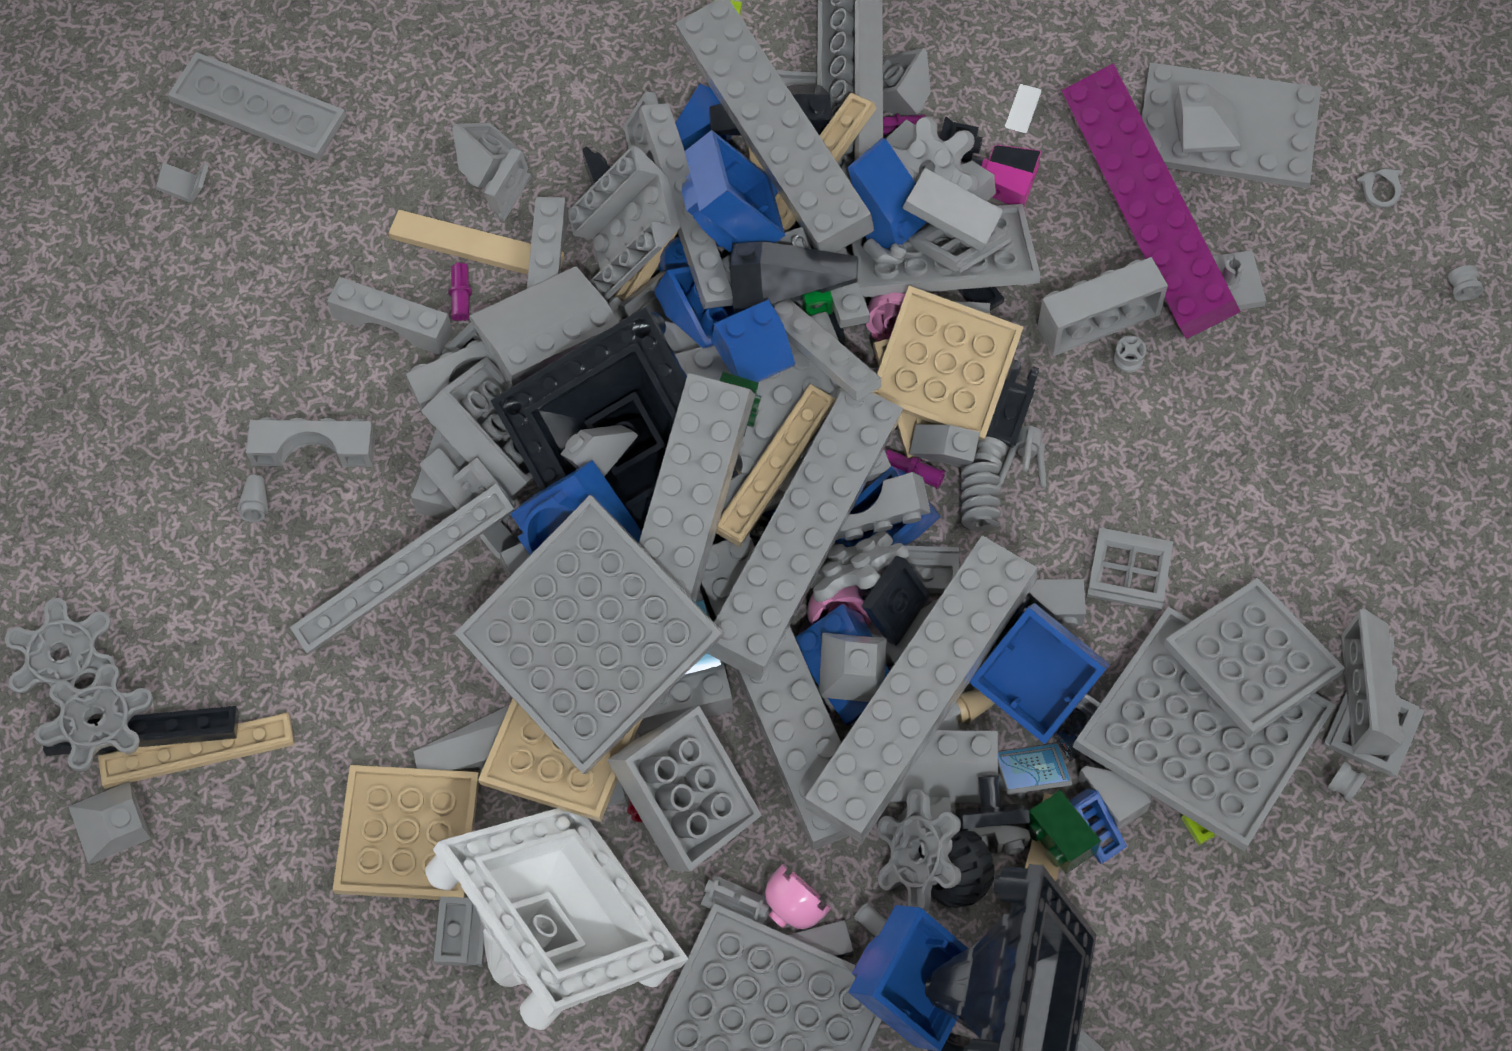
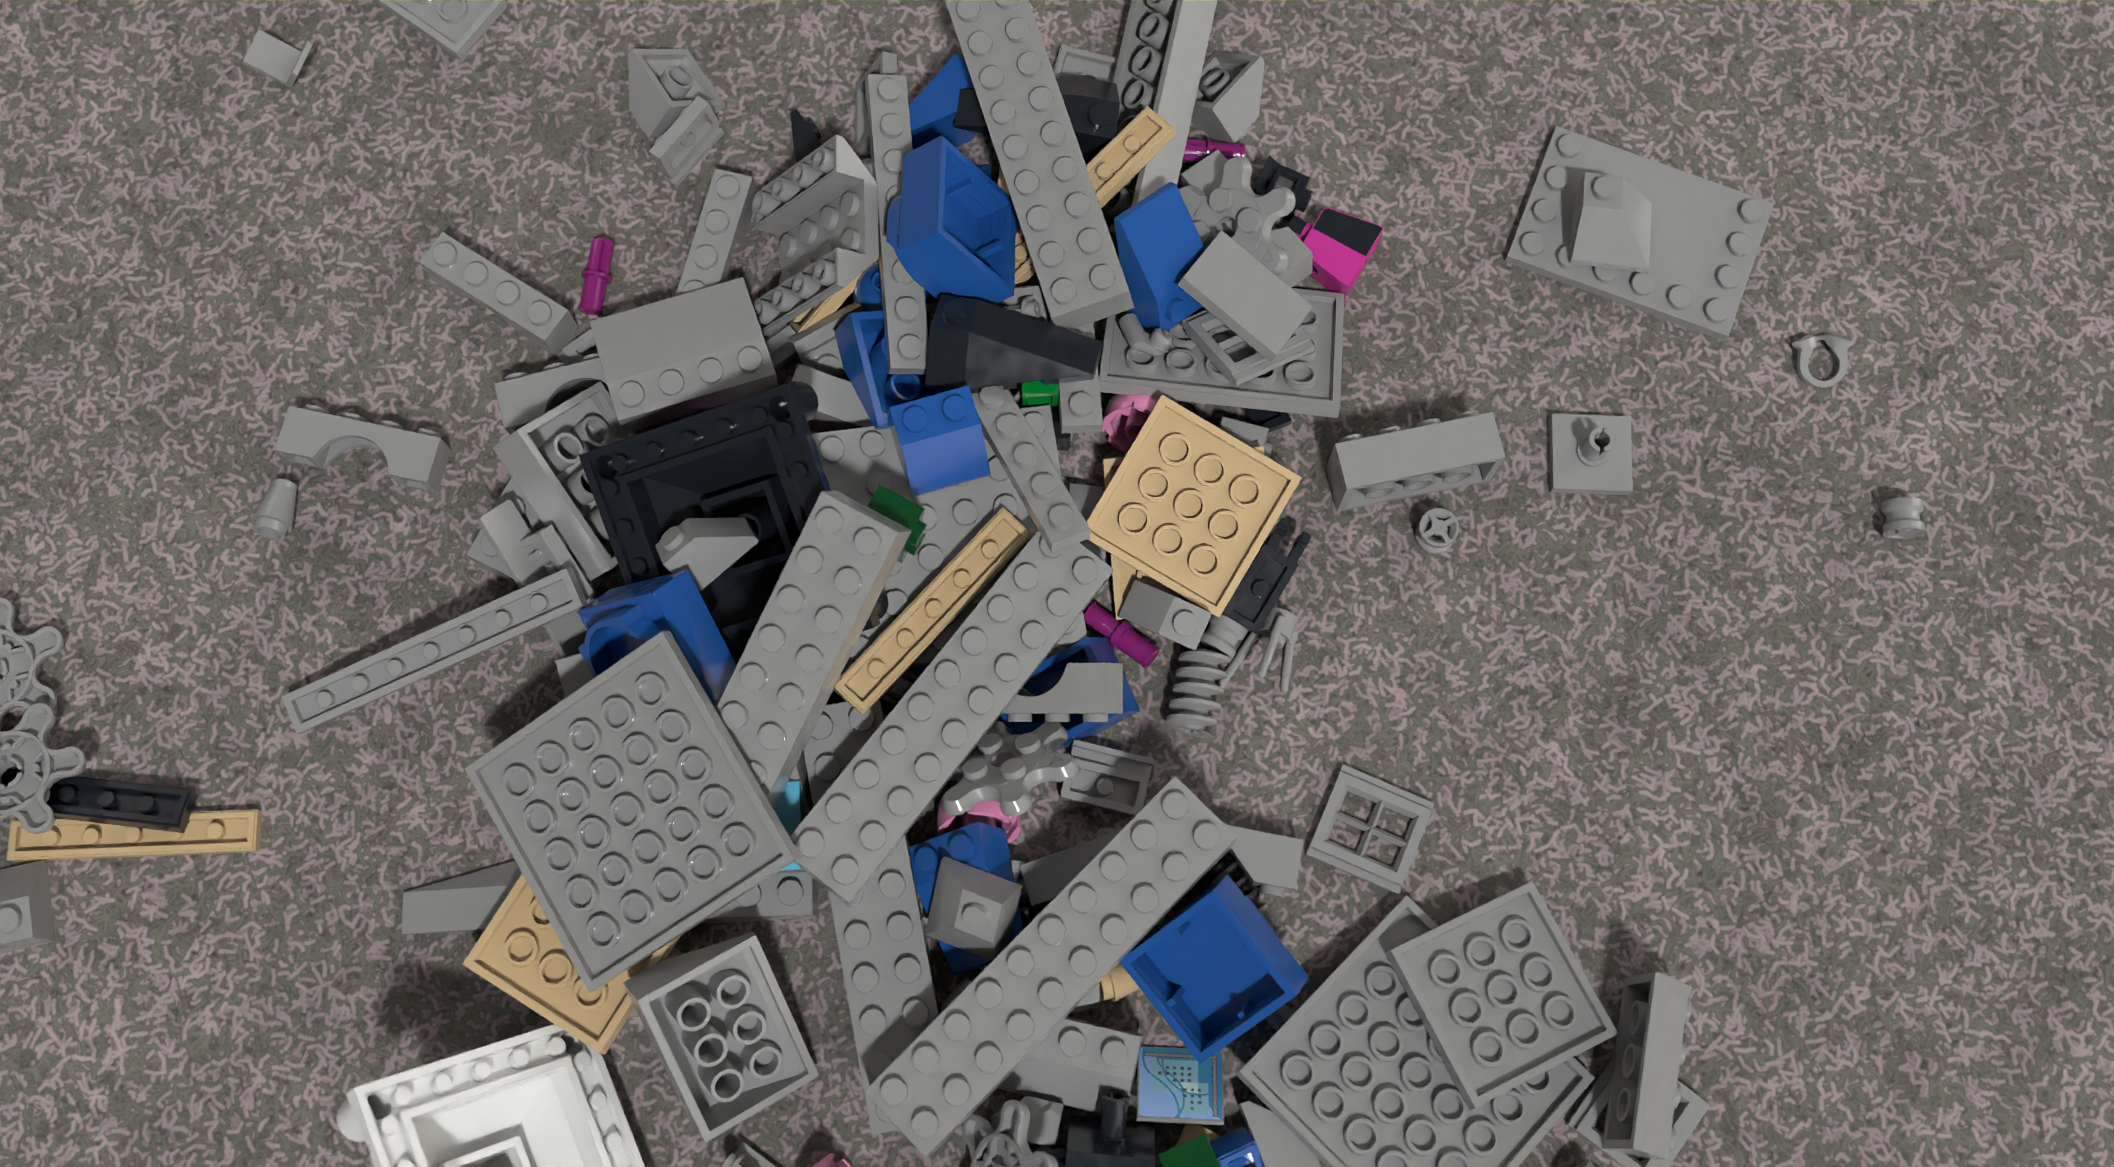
camera: 10 degrees right, 10 degrees up
(394, 824) = (365, 999): tan plate -> none
(462, 241) = (614, 206): tan tile -> none
(895, 600) = (1047, 832): black tile -> none
(1023, 108) = (1376, 158): white sticker -> none
(1066, 744) = (1234, 1057): black tile -> none
(1150, 200) = (1511, 324): magenta brick -> none

